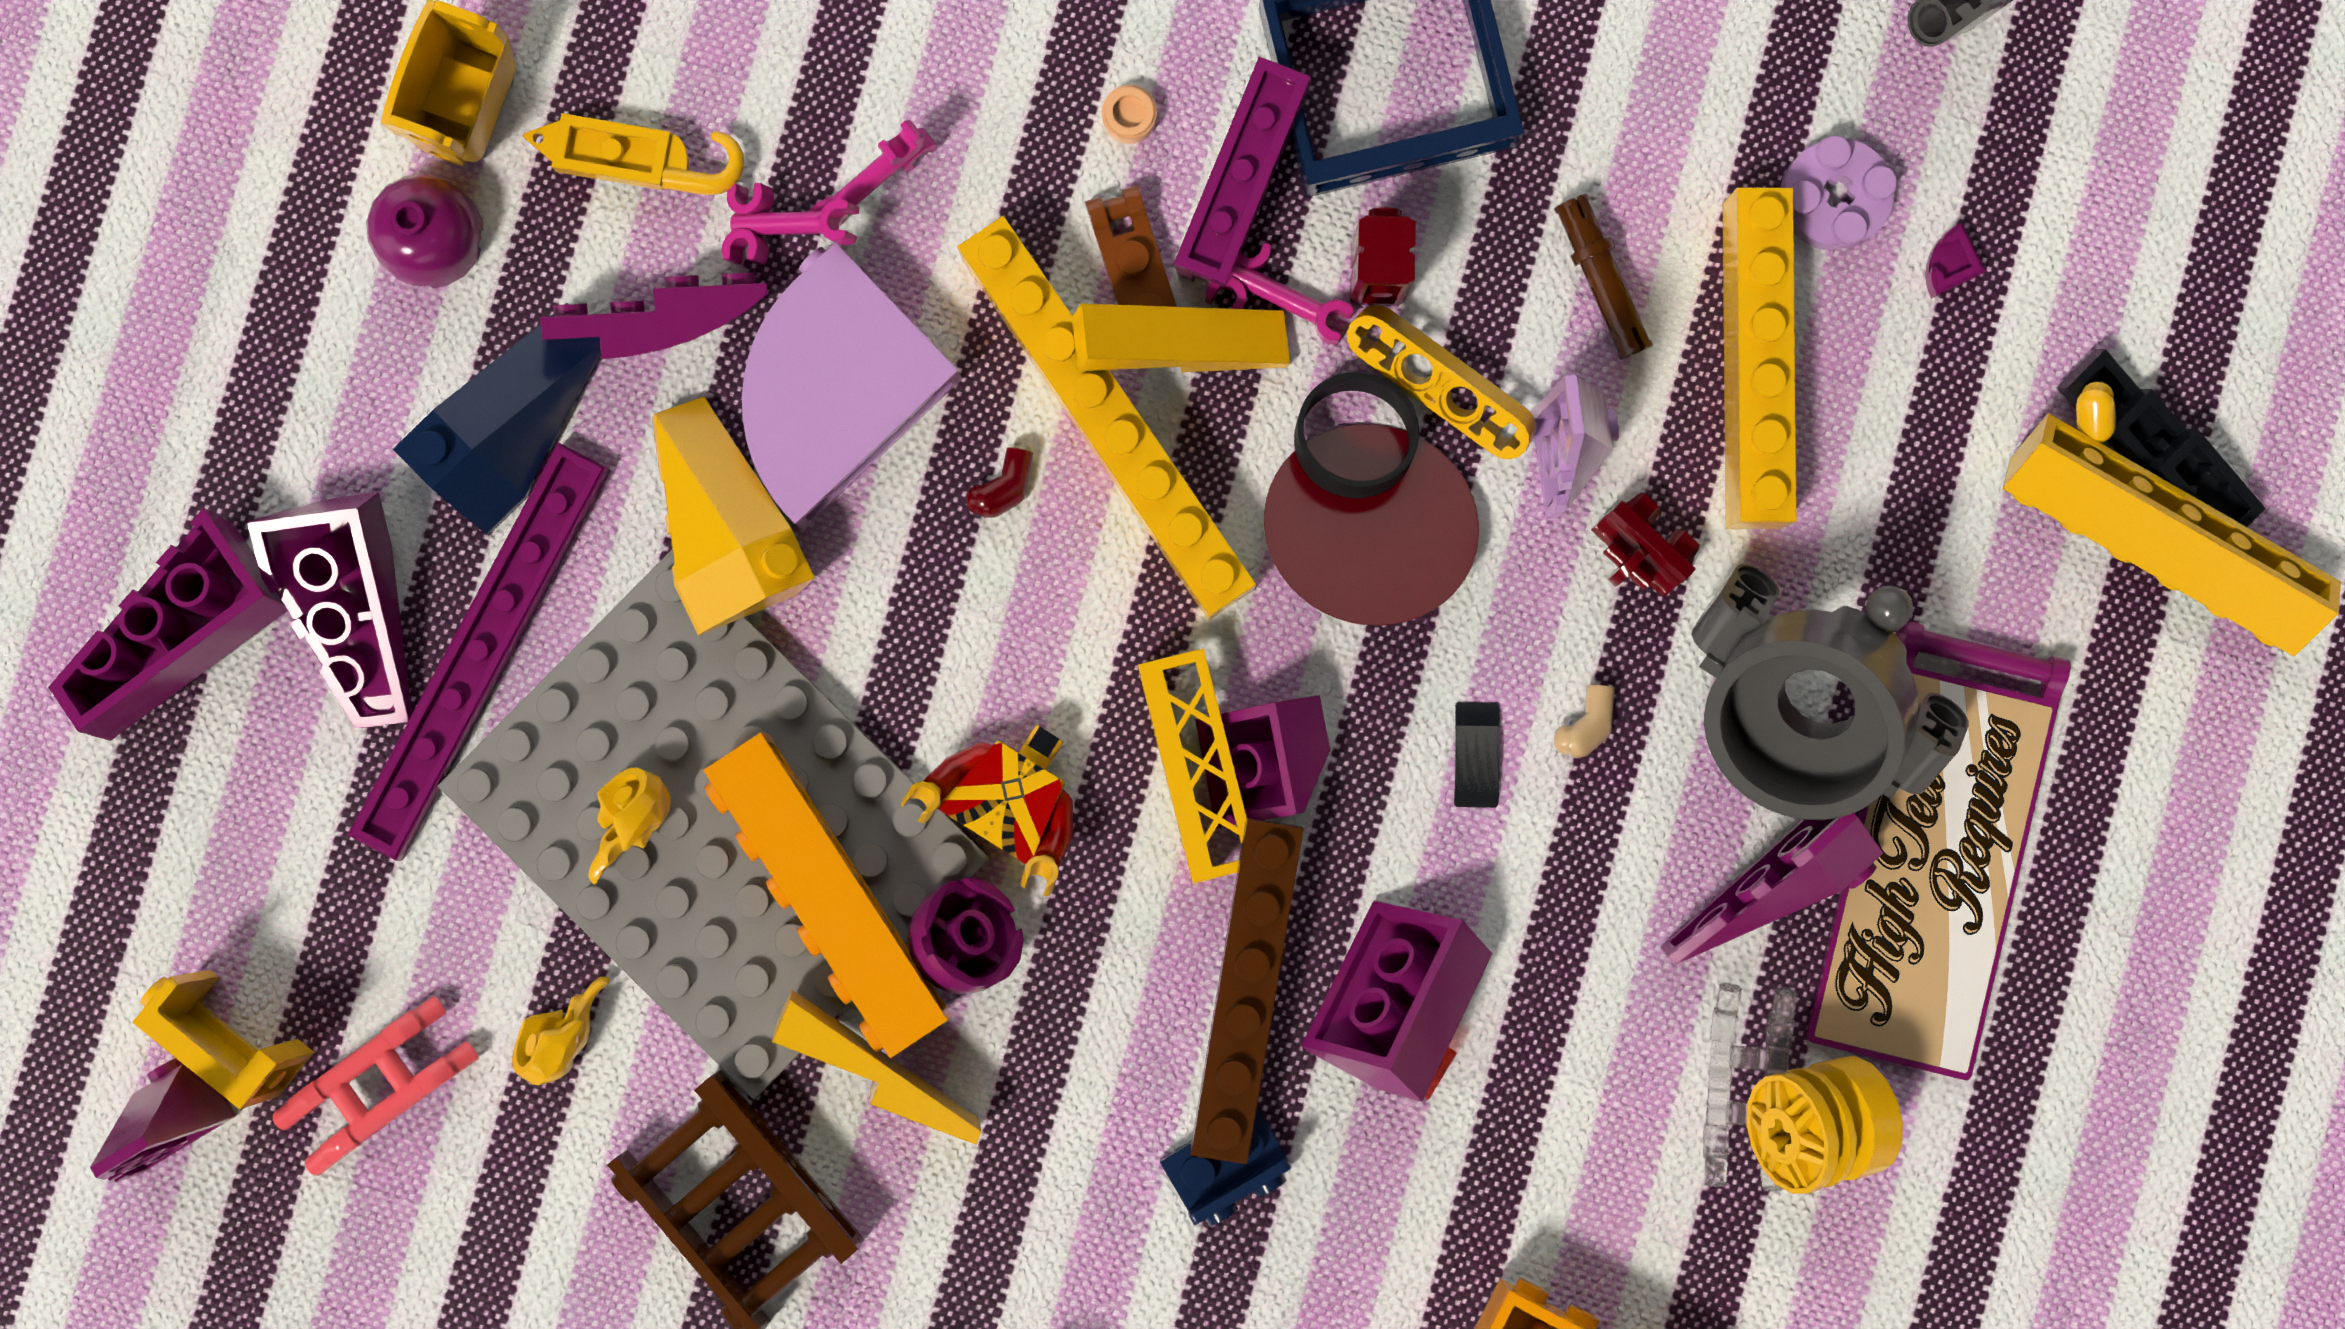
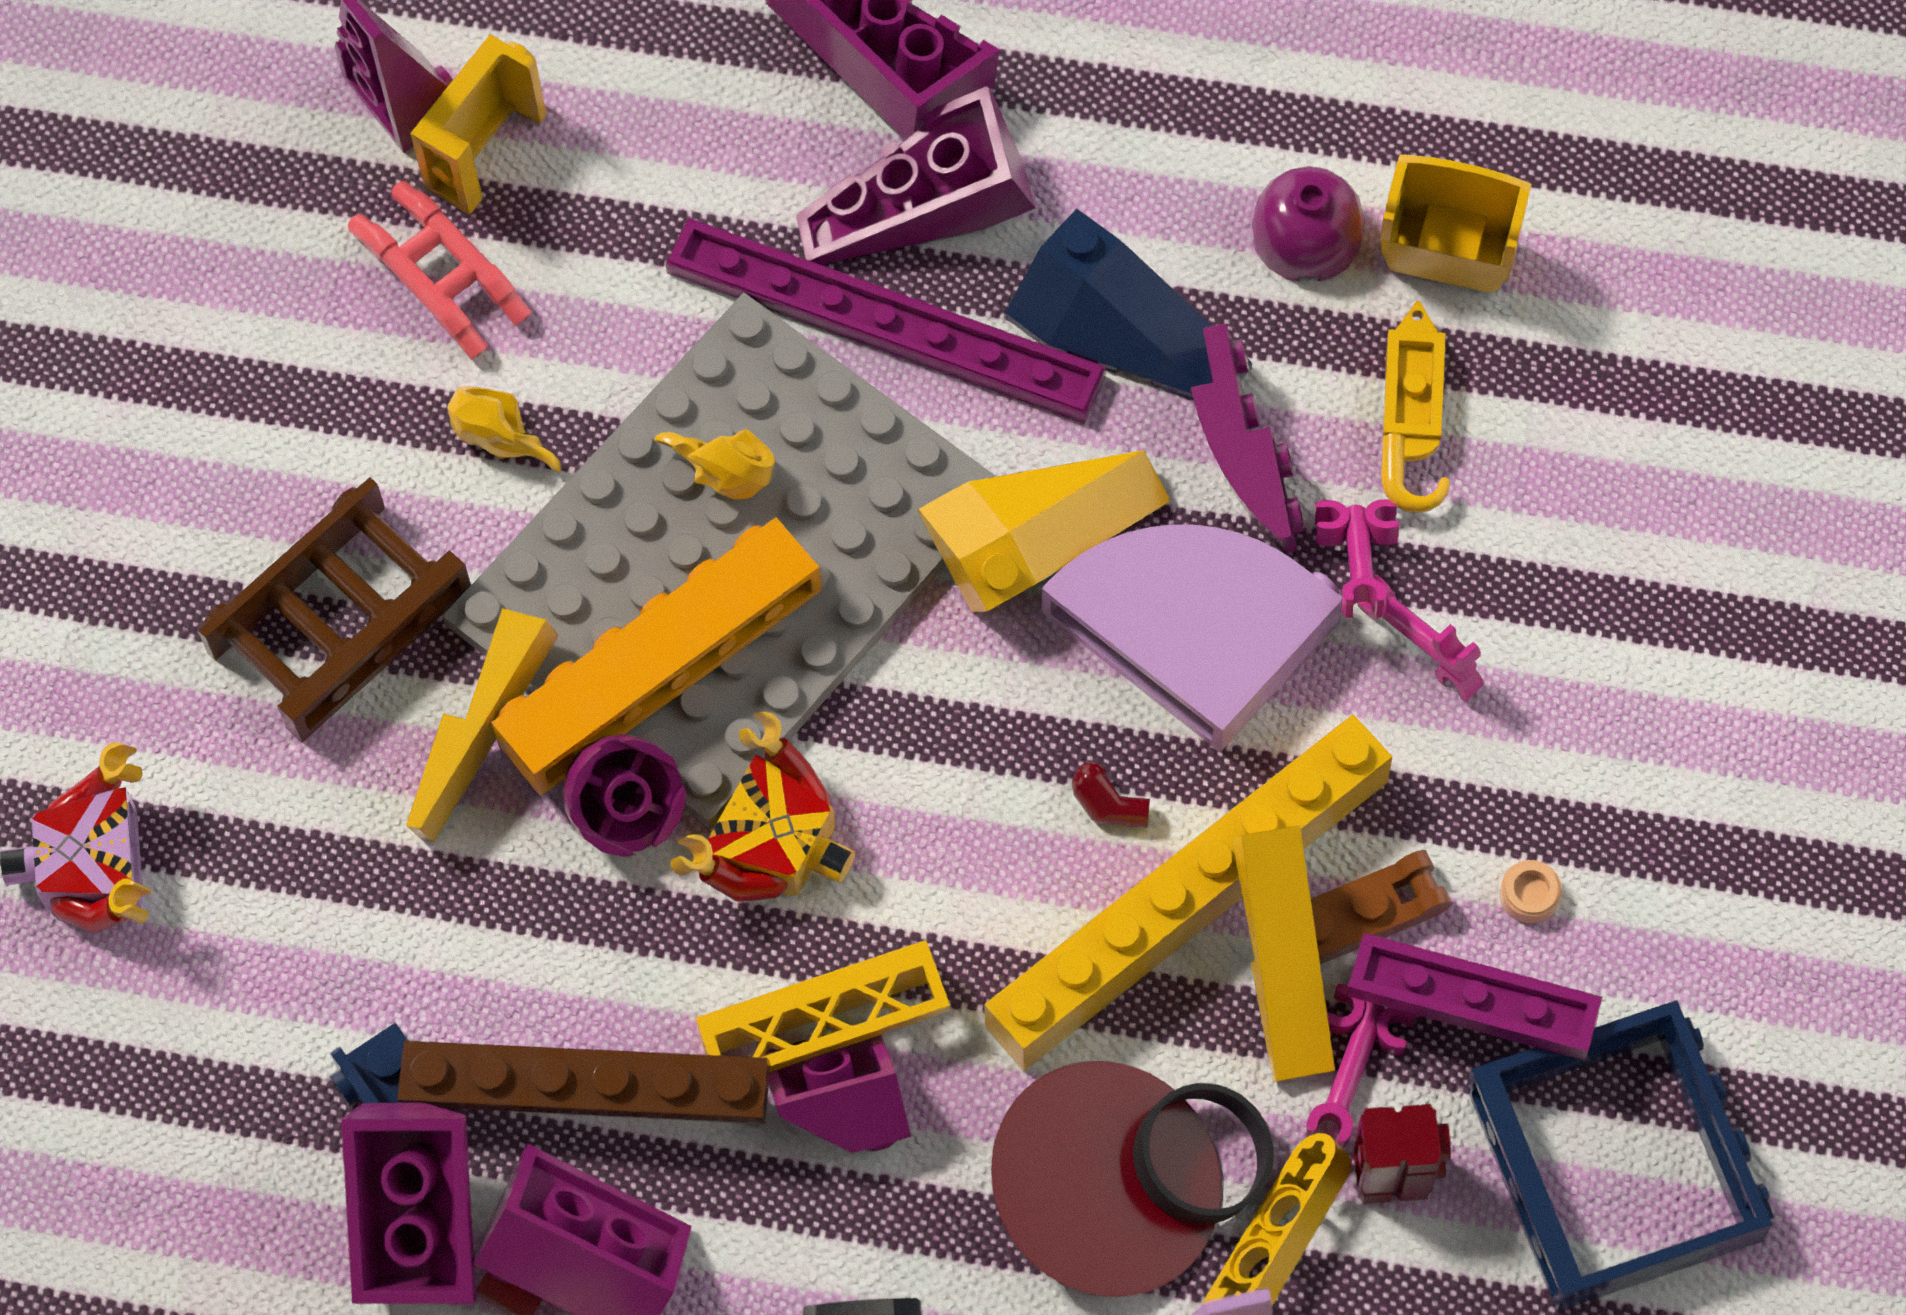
camera: 90 degrees right, 20 degrees down
(1357, 1159) = (408, 1205): none -> magenta slope

